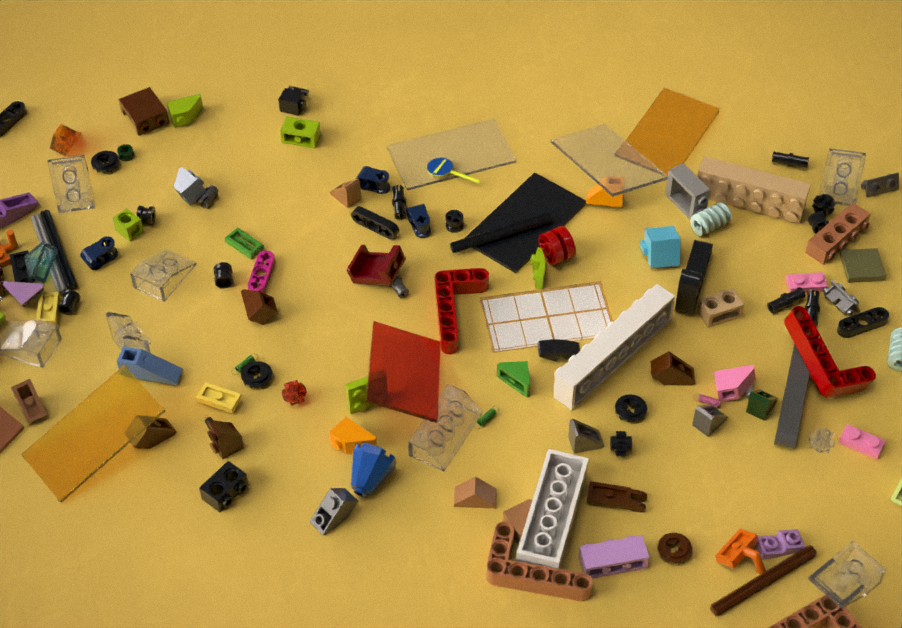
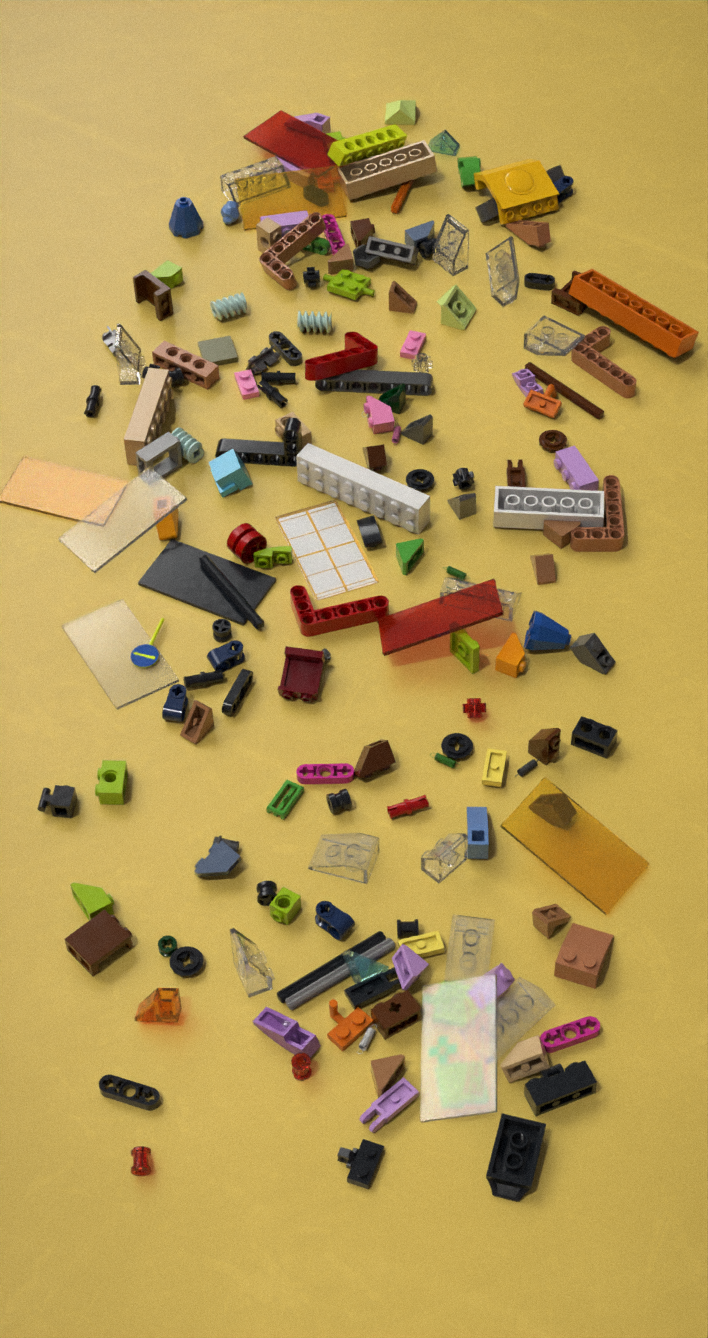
camera: 100 degrees left, 0 degrees up
(199, 324) = (407, 806): none -> red pin

